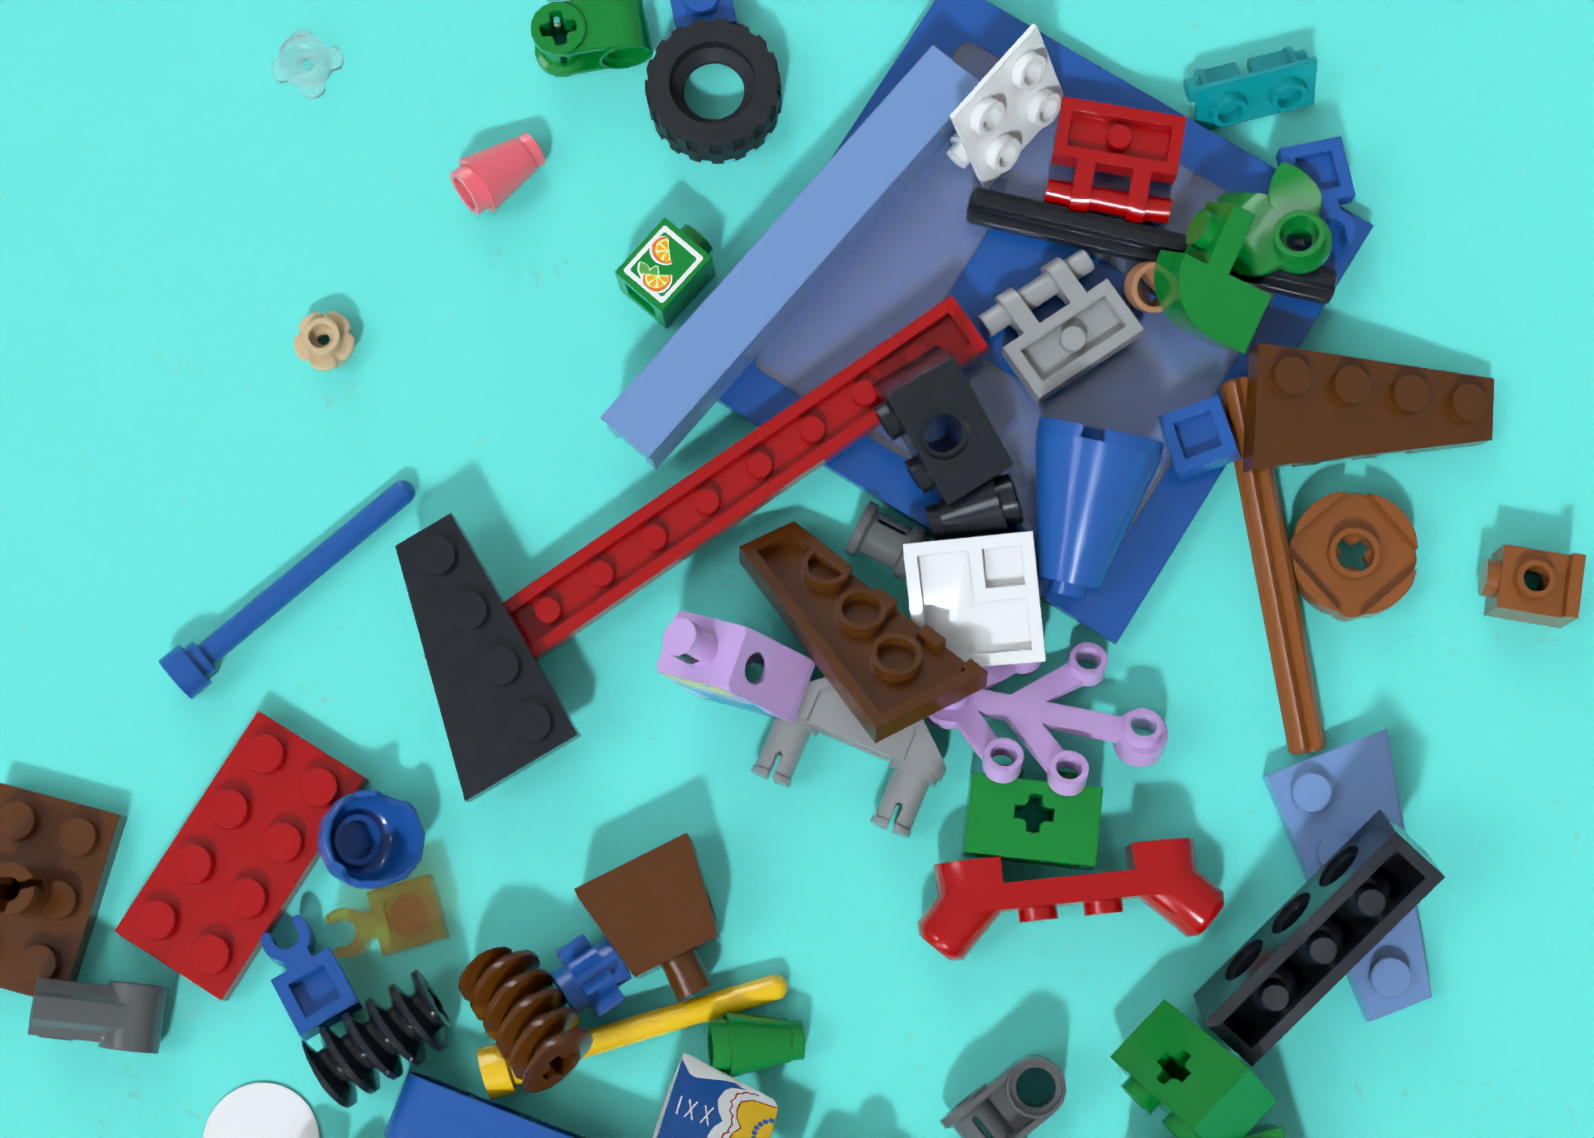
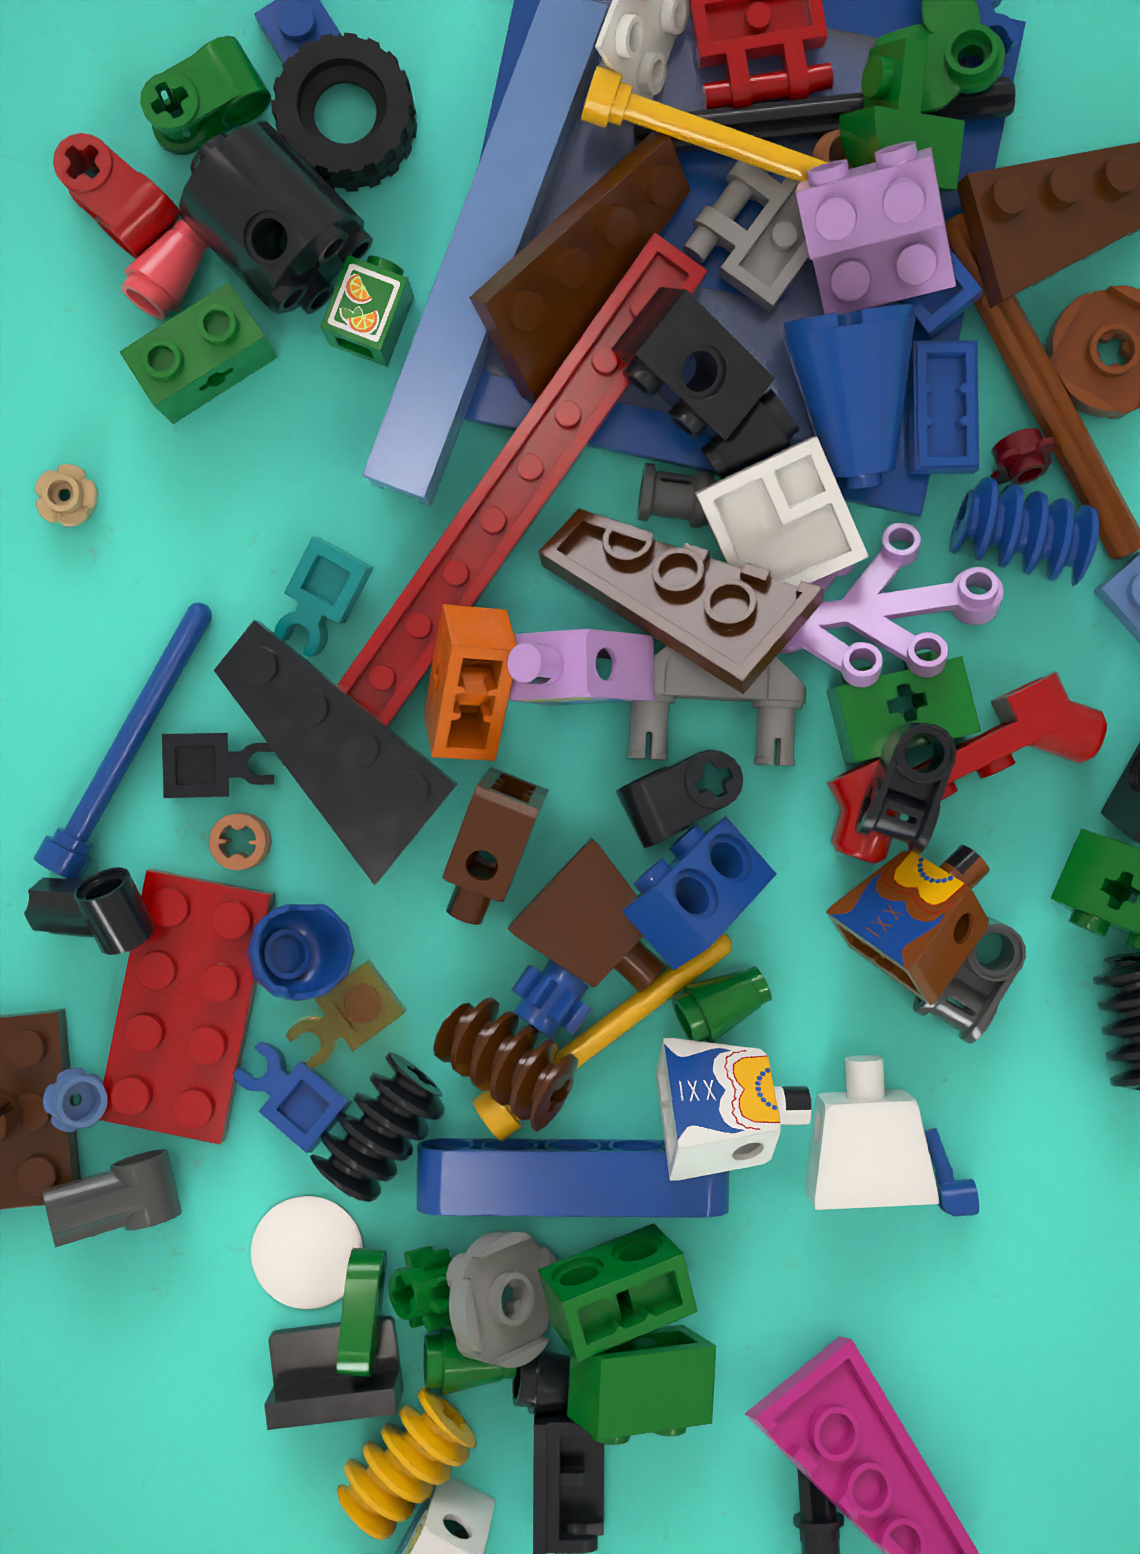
camera: 25 degrees left, 10 degrees up
(117, 913) = (91, 1104): none -> medium blue plate
(200, 727) = (99, 907): none -> black piece
(350, 631) = (202, 765): none -> black plate
(364, 699) = (239, 860): none -> nougat bush
(479, 96) = (117, 198): none -> red piece
(496, 257) = (198, 354): none -> green brick
(529, 509) = (326, 587): none -> teal plate
(609, 162) = (271, 217): none -> black cylinder
(610, 784) = (496, 822): none -> reddish brown torso
(625, 643) = (469, 683): none -> orange brick
(768, 919) = (699, 892): none -> blue brick
(777, 824) = (668, 798): none -> black piece
(853, 305) = (567, 273): none -> reddish brown wing
(956, 168) = (613, 102): none -> yellow piece
(970, 1025) = (916, 918): none -> dark orange torso
(999, 893) = (907, 790): none -> black piece
(1153, 364) = (876, 229): none -> lavender plate
(1169, 549) = (943, 407): none -> blue plate
(1209, 691) = (1027, 528): none -> blue piece
(1231, 623) = (1022, 456): none -> dark red plate

